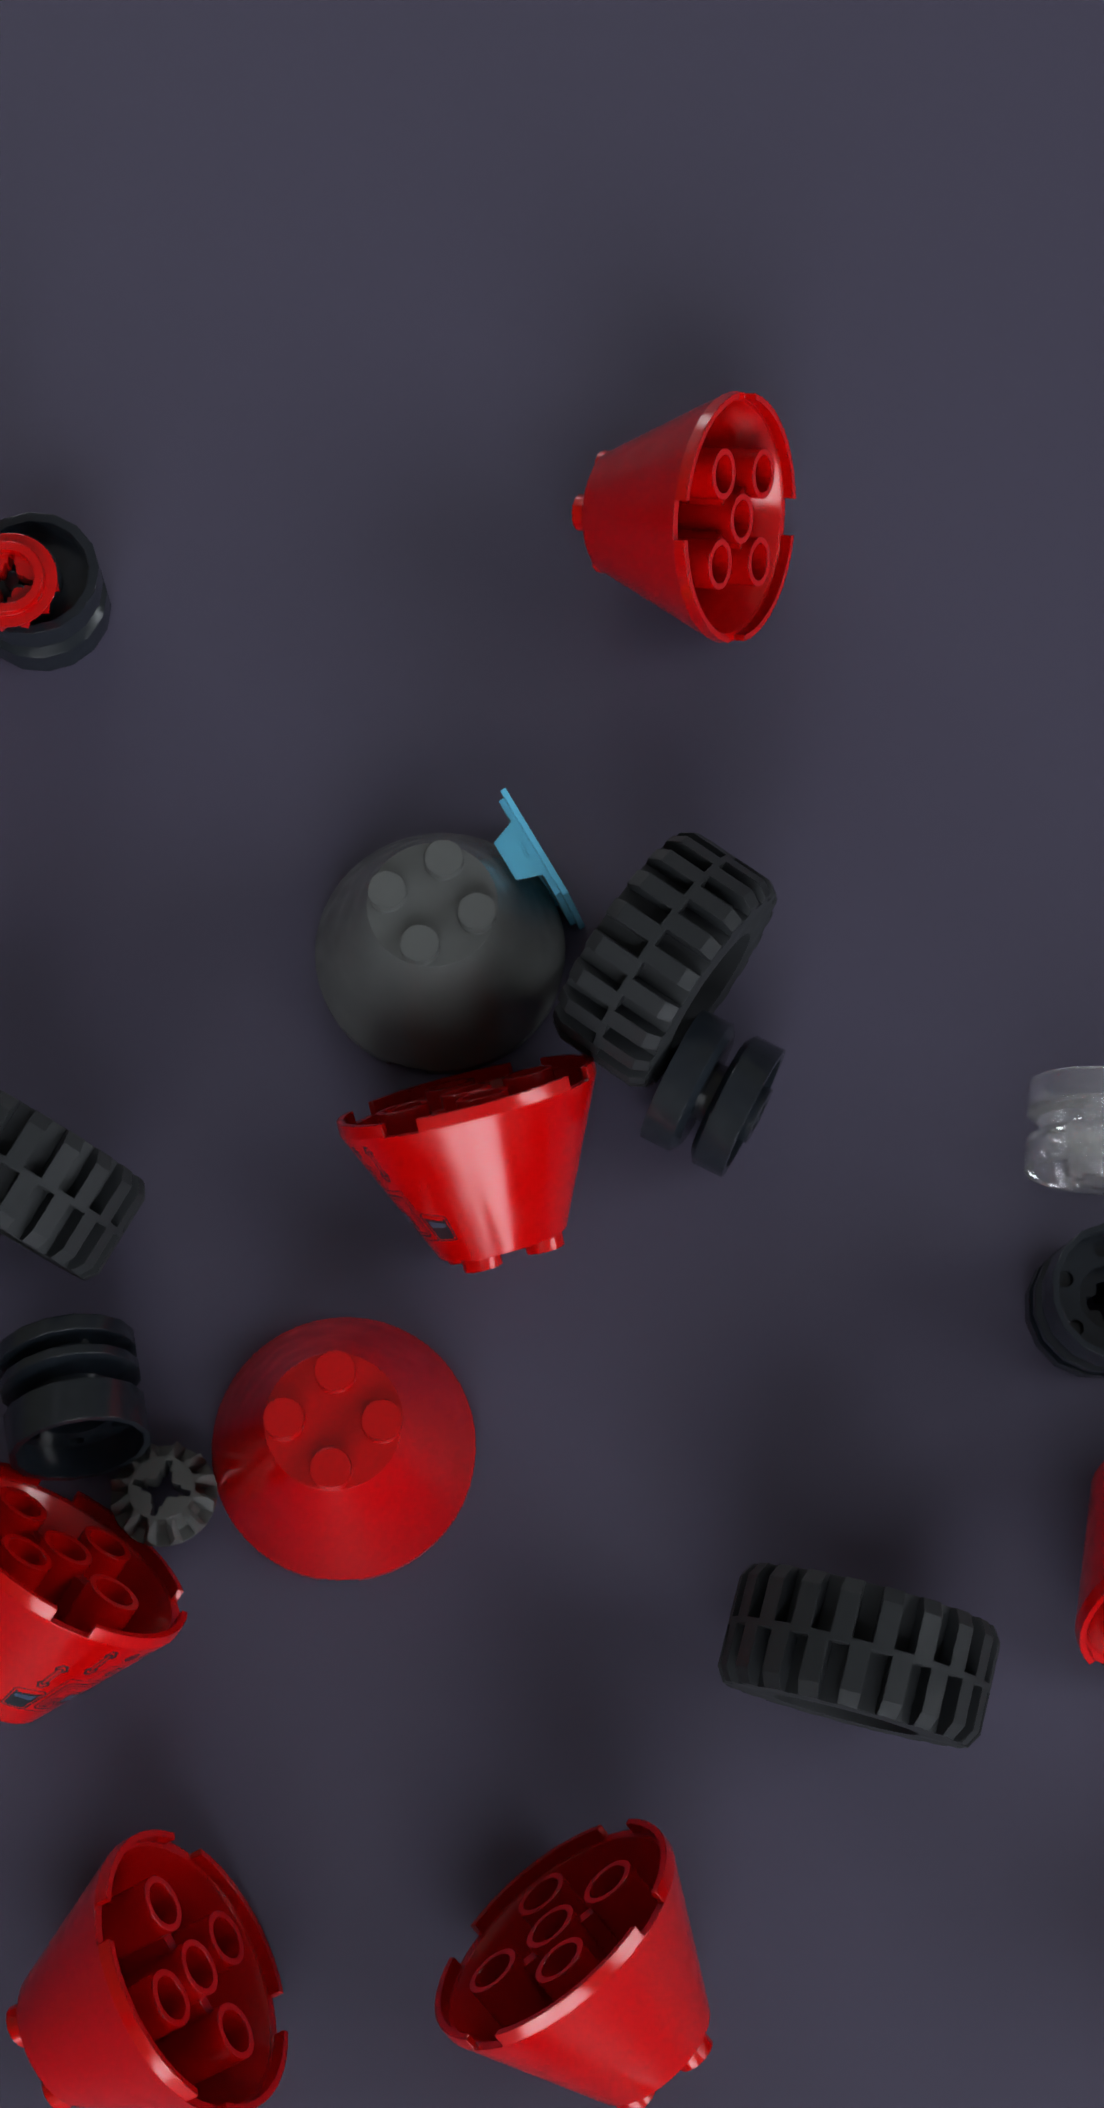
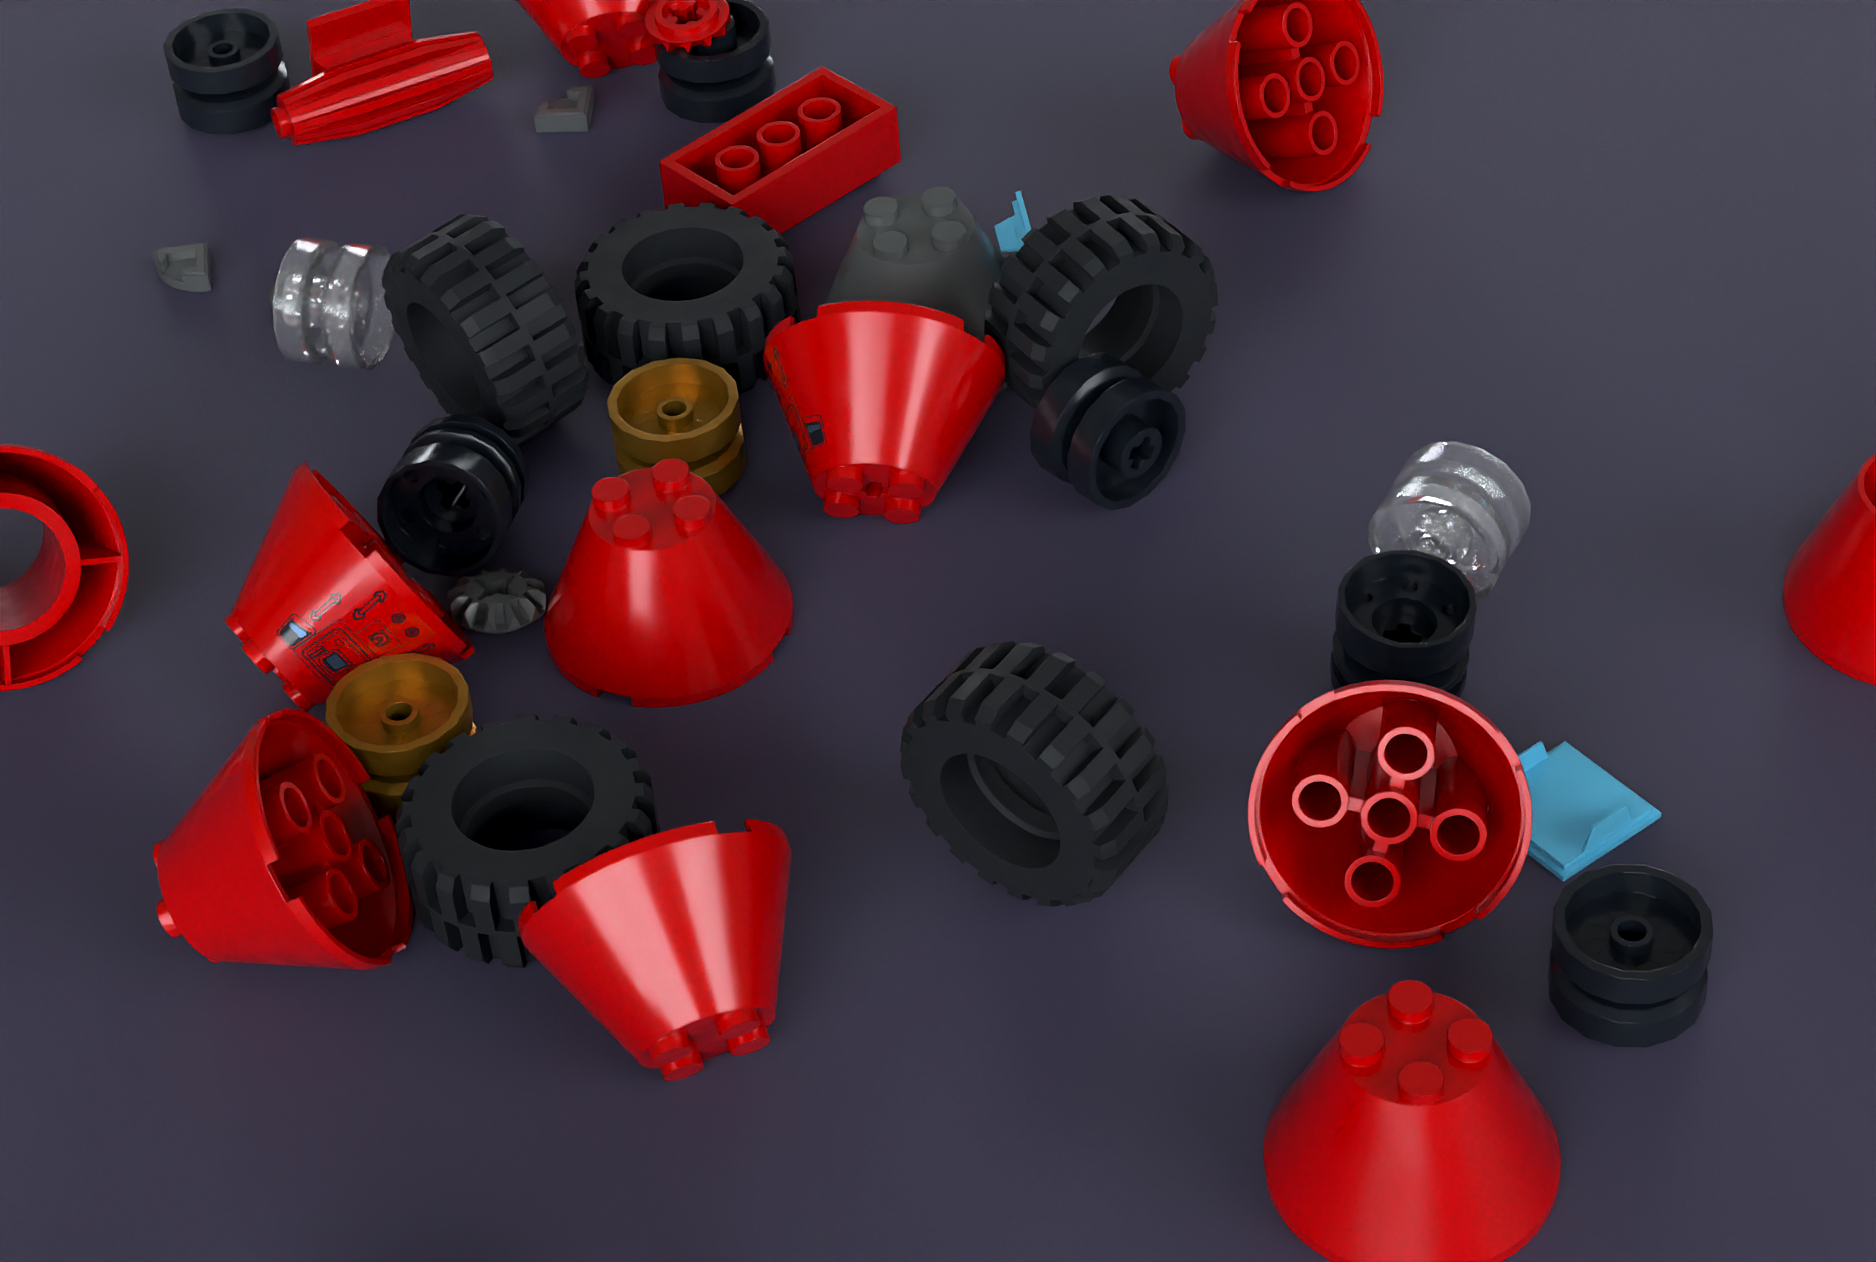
camera: 25 degrees right, 30 degrees down
(131, 1716) = (396, 717): none -> pearl gold wheel
(172, 931) = (685, 288): none -> black tyre
(187, 749) = (788, 152): none -> red brick
(250, 1170) = (681, 413): none -> pearl gold wheel
(269, 1829) = (507, 784): none -> black tyre

